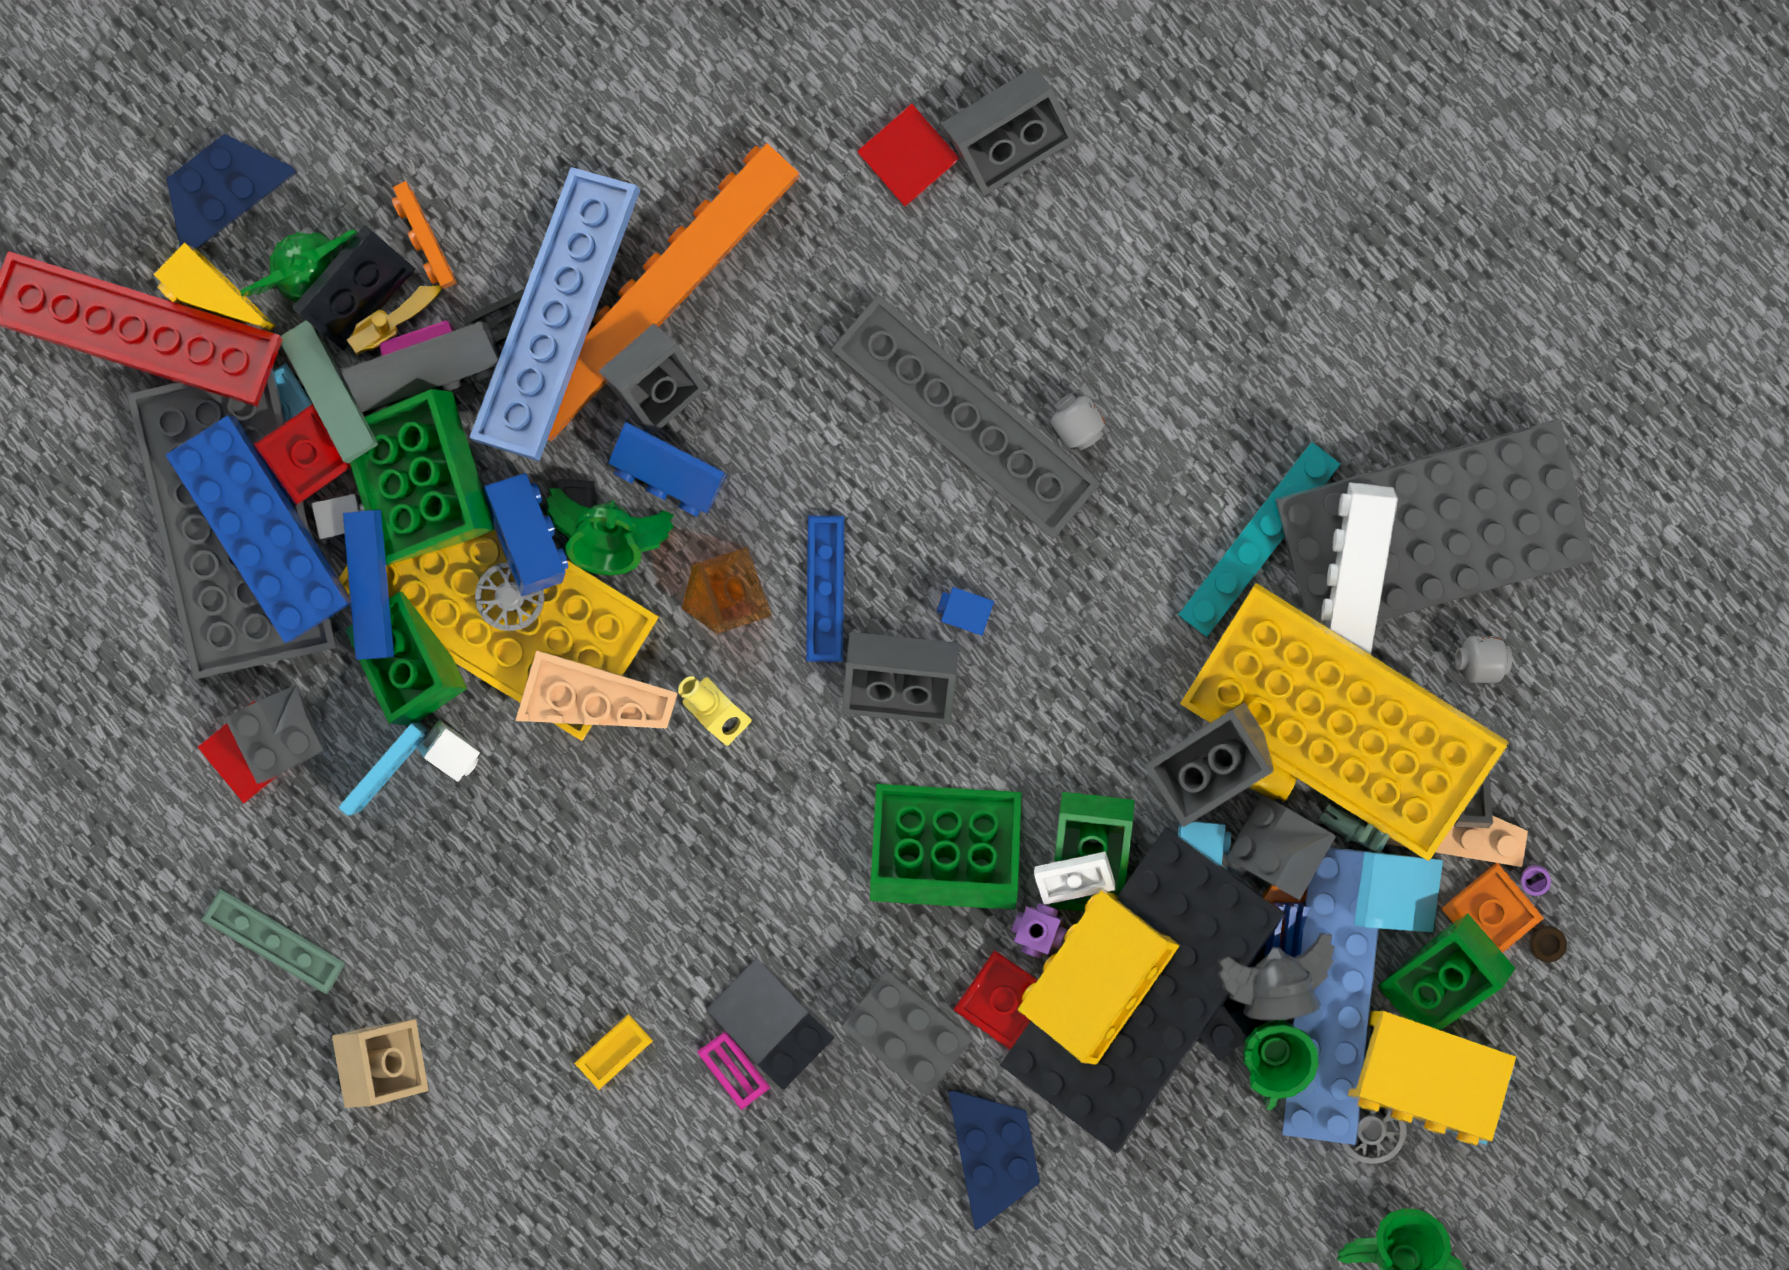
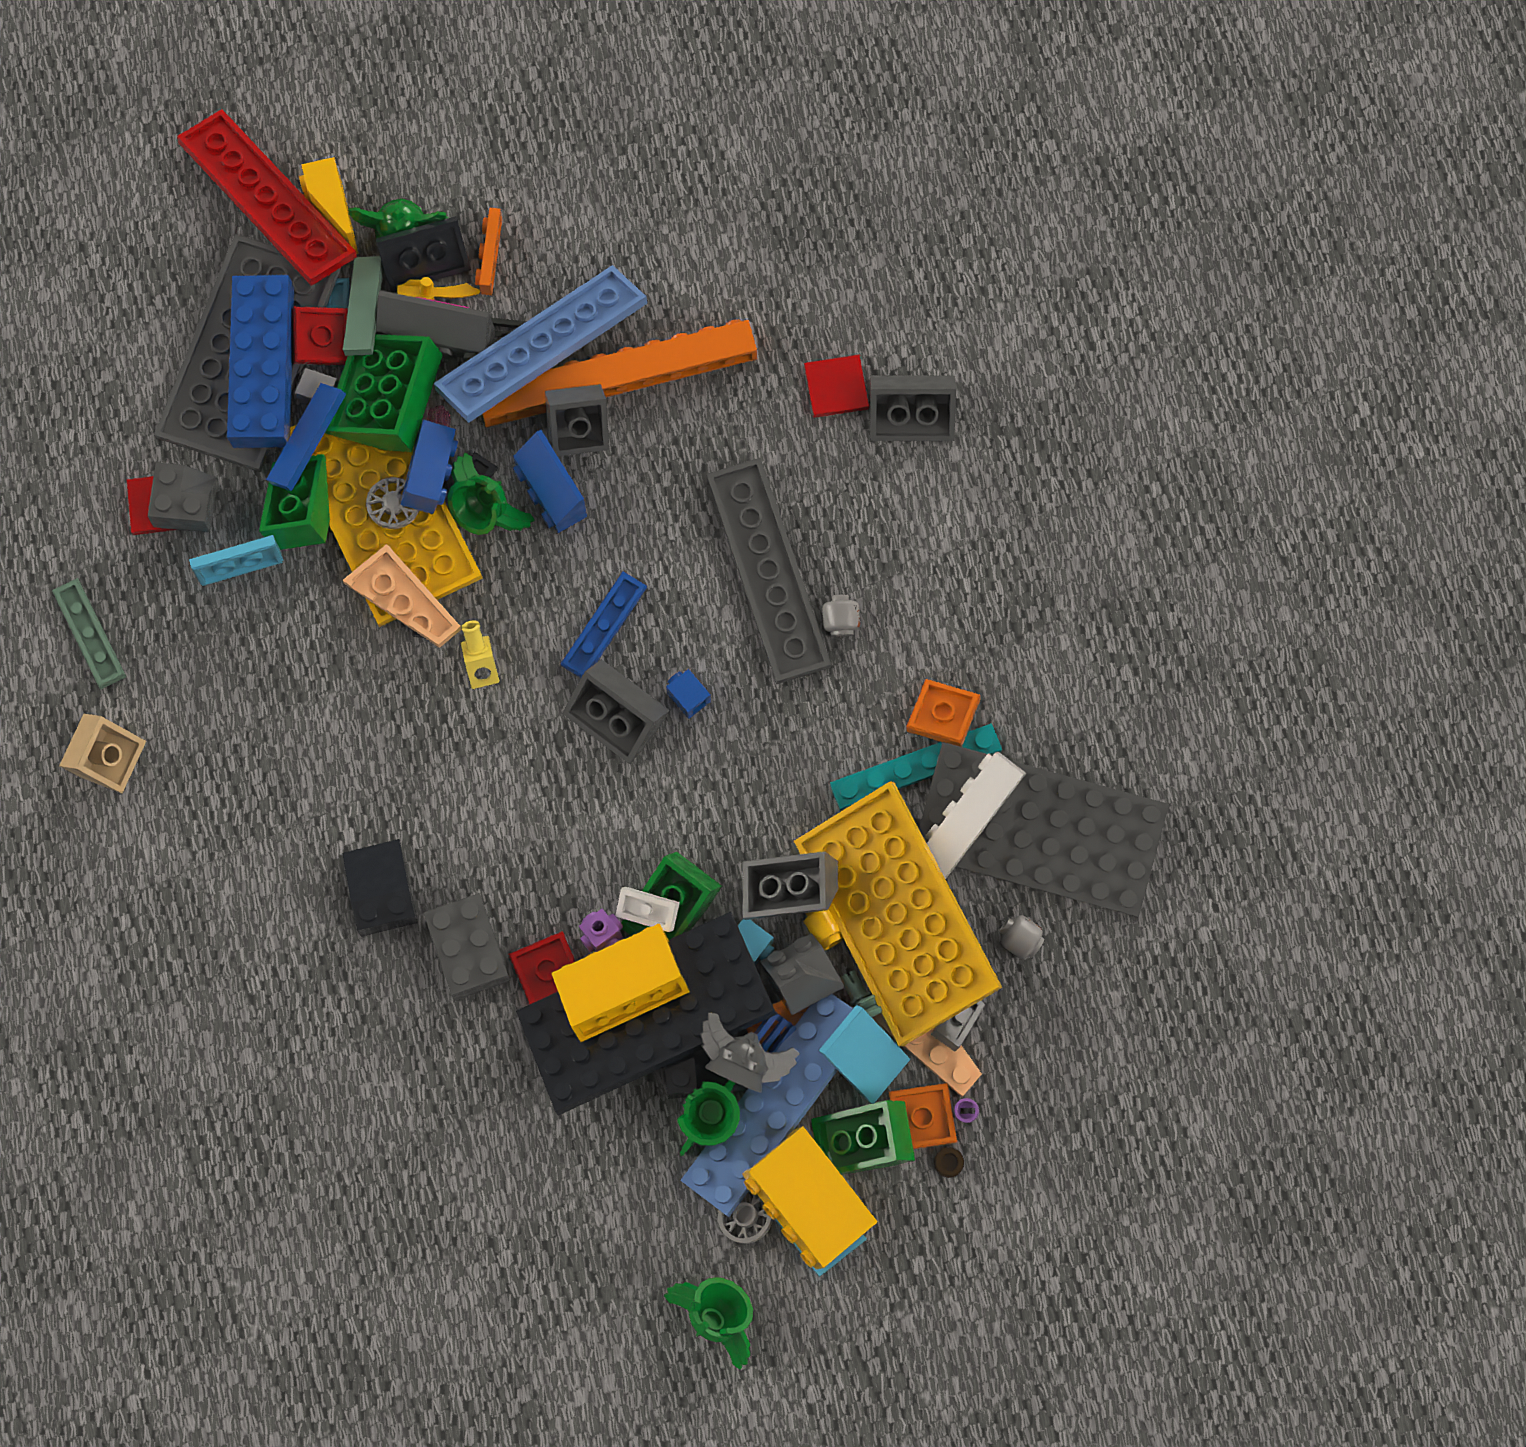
camera: 35 degrees right, 15 degrees down
(221, 187) = (382, 150): dark blue wing -> none
(449, 751) = (287, 578): white brick -> none
(494, 466) = (439, 415): none -> clear pink plate
(613, 1051) = (262, 842): yellow tile -> none
(726, 592) = (536, 585): clear orange slope -> none
(752, 1094) = (345, 903): dark pink tile -> none
(945, 846) = (573, 841): green slope -> none
(993, 1153) = (472, 1070): dark blue wing -> none
(1254, 463) = (943, 713): none -> orange tile

